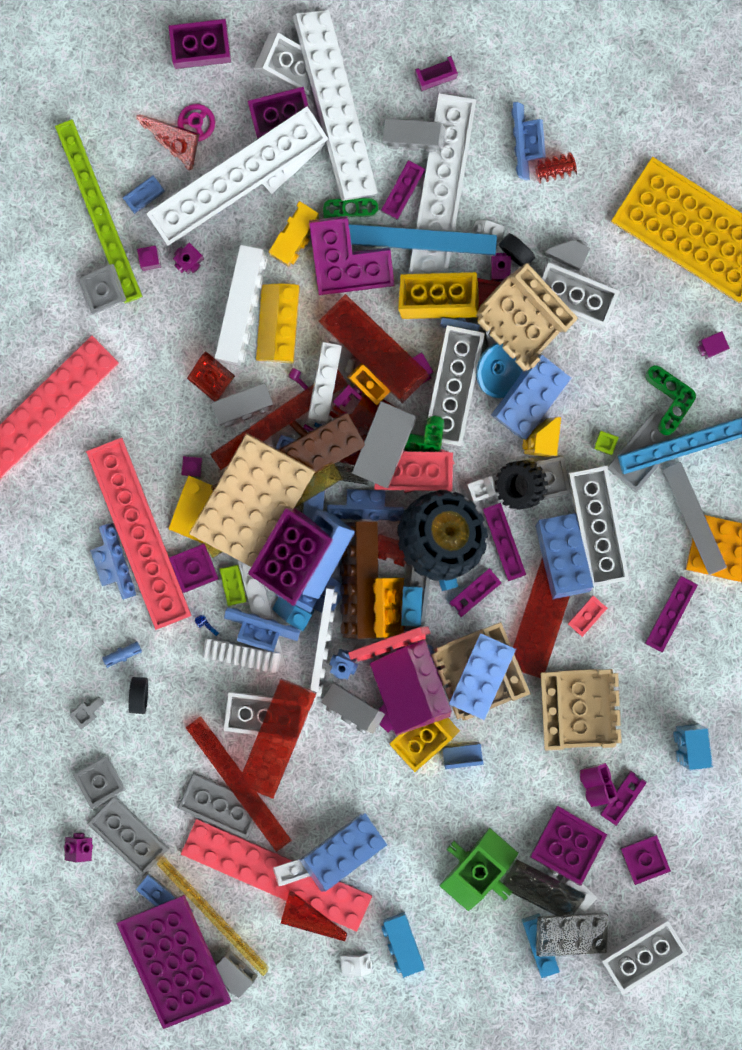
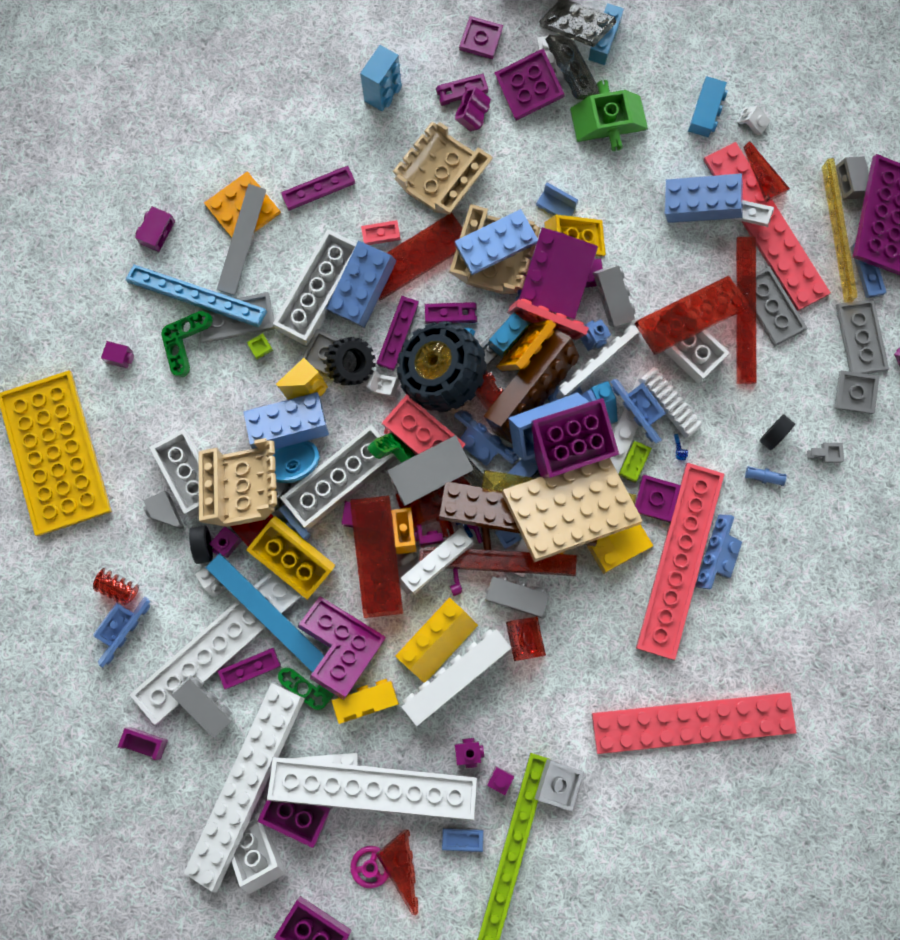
camera: 145 degrees left, 10 degrees down
(191, 466) = (596, 580): magenta plate -> none

